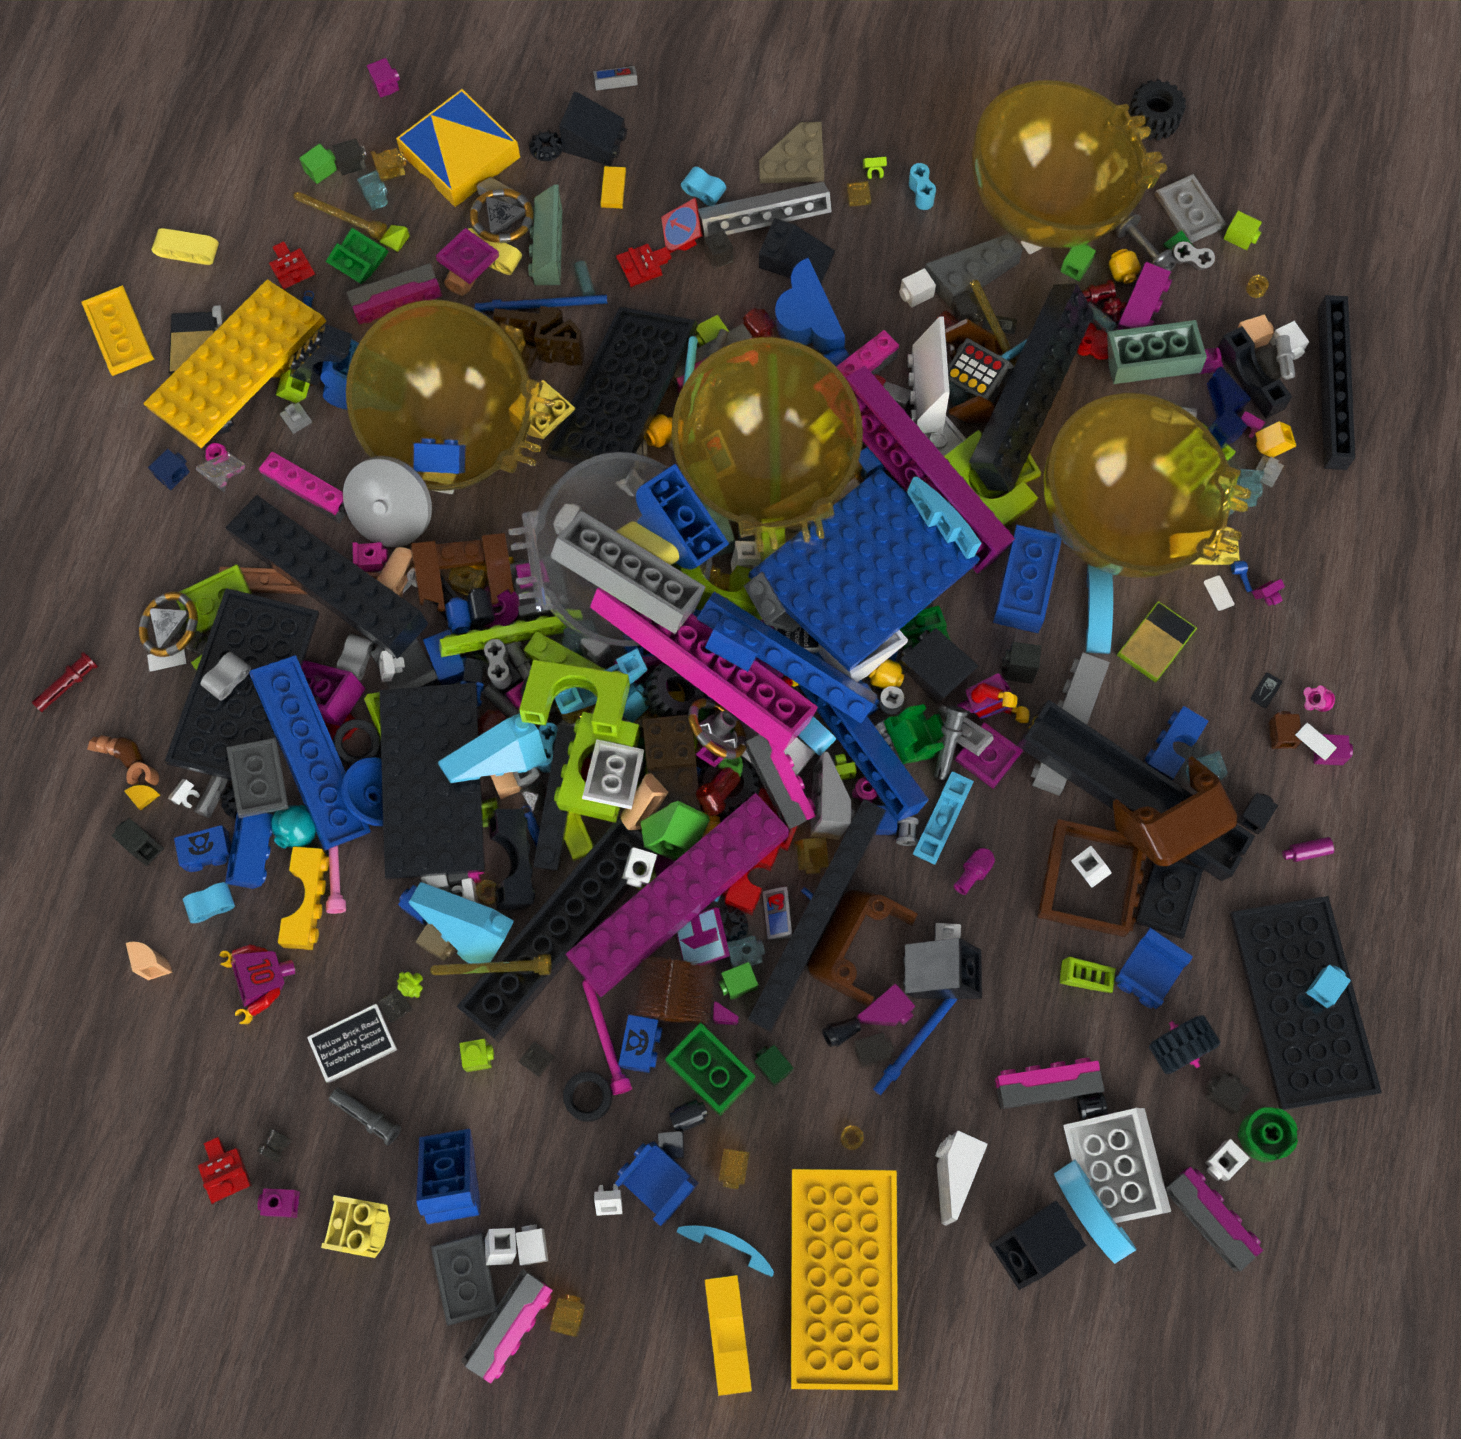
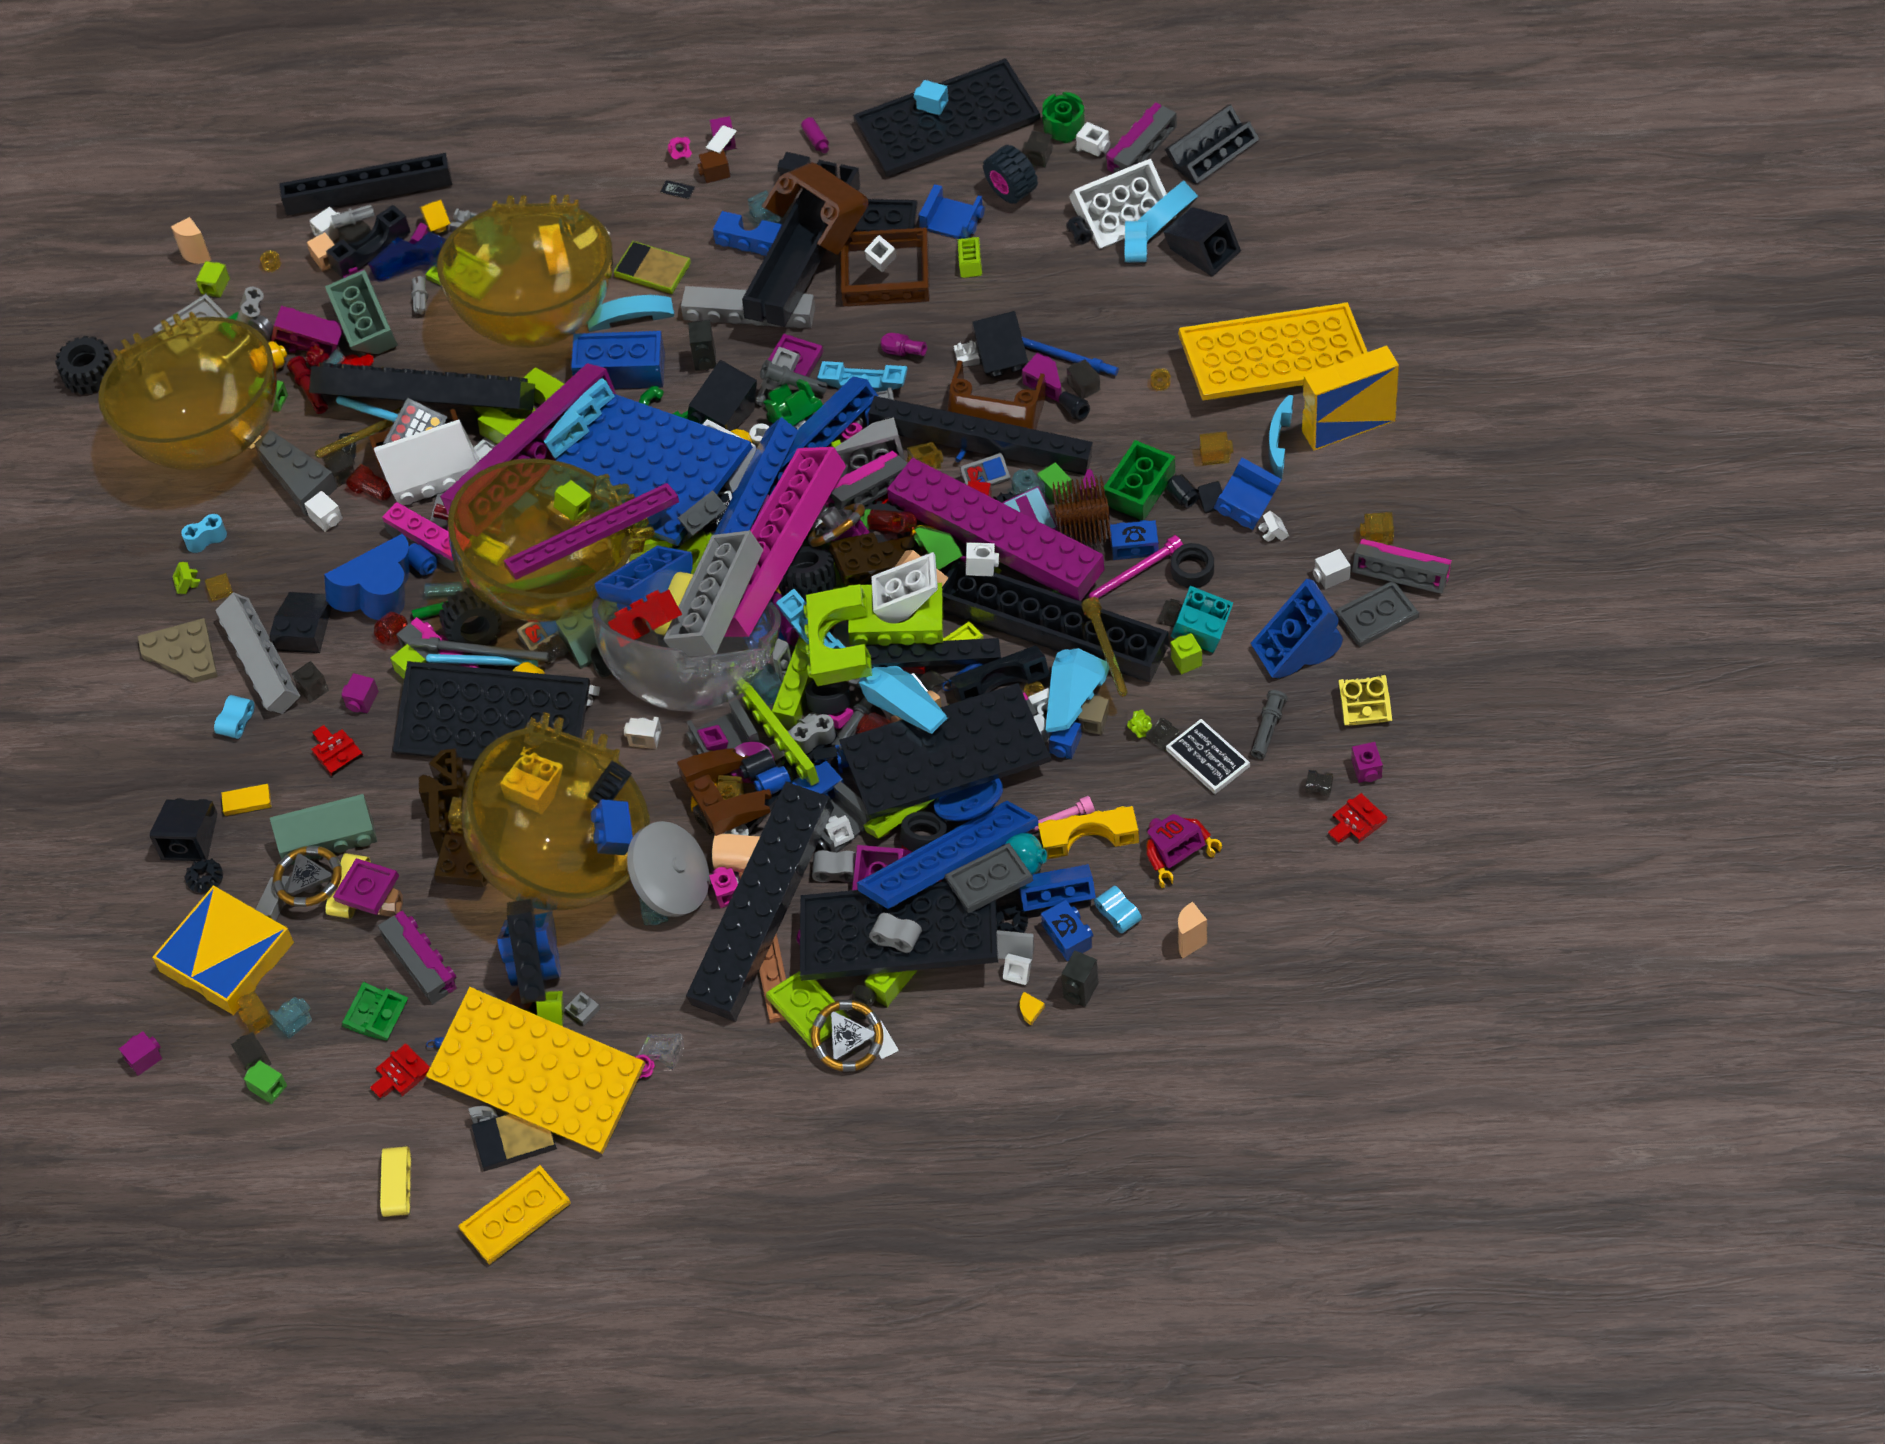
camera: 100 degrees left, 15 degrees down
(72, 675) = (923, 1112): dark red pin -> none
(129, 754) = (990, 1031): nougat piece -> none
(169, 468) = (671, 1101): dark blue brick -> none
(303, 486) = (663, 965): dark pink piece -> none
(375, 229) = (339, 1001): clear yellow piece -> none
(395, 237) = (343, 983): lime slope -> none
(480, 458) = (607, 784): none -> black slope
(500, 1246) = (1340, 586): white brick -> none
(505, 1082) = (1203, 617): none -> teal slope
(536, 303) = (411, 861): blue bar -> none
(584, 278) = (369, 791): clear light blue hinge -> none
(614, 499) = (657, 610): none -> red arch
(615, 78) = (104, 835): light grey slope -> none
(681, 227) = (288, 720): piece -> none
(693, 288) = (359, 693): none -> magenta brick
(735, 643) = (758, 507): blue brick -> none
(759, 484) = (591, 531): none -> magenta plate
(773, 1064) = (1118, 441): dark green brick -> none
(815, 478) = (572, 500): none -> lime brick
(956, 1169) = (1171, 283): white slope -> none
(978, 601) = (652, 392): none -> green arm
(993, 697) = (740, 352): torso -> none
(1049, 1084) = (1070, 259): piece -> none
(1053, 1165) = (1135, 241): none -> medium azure axle
(1189, 1304) = (1211, 144): none -> black slope
(1269, 592) = (585, 197): magenta tile -> none
(1293, 212) = (190, 242): none -> light nougat brick

